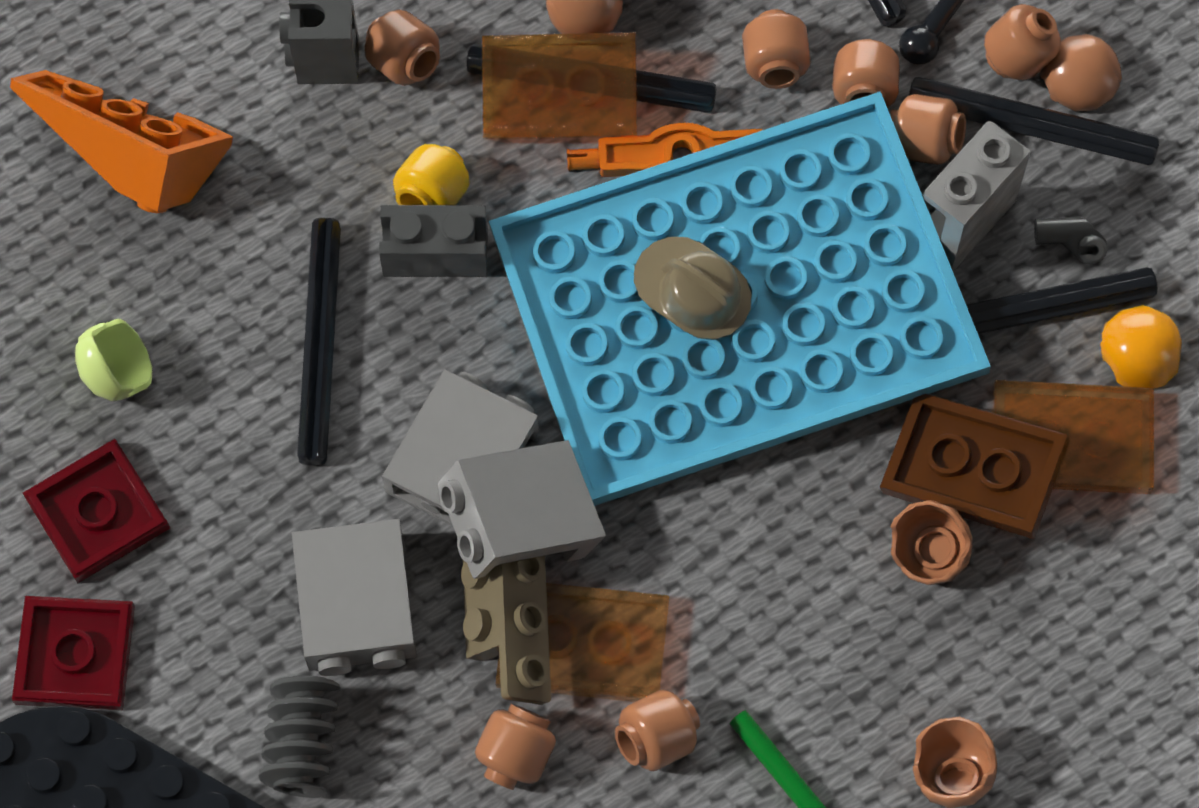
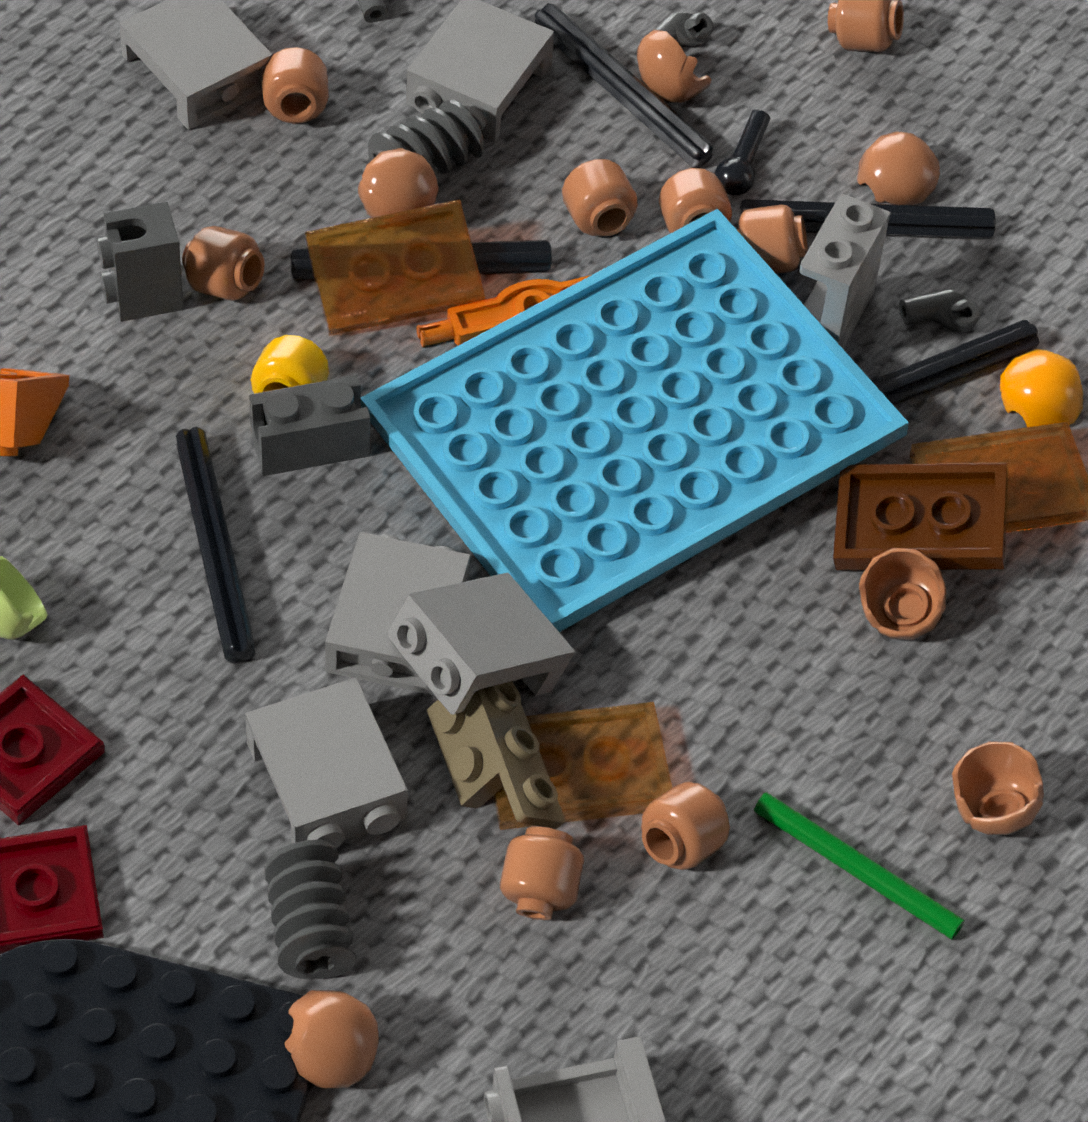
camera: 20 degrees left, 15 degrees down
(693, 287) = (590, 411): dark tan piece -> none
(1022, 42) = (836, 148): nougat head -> none

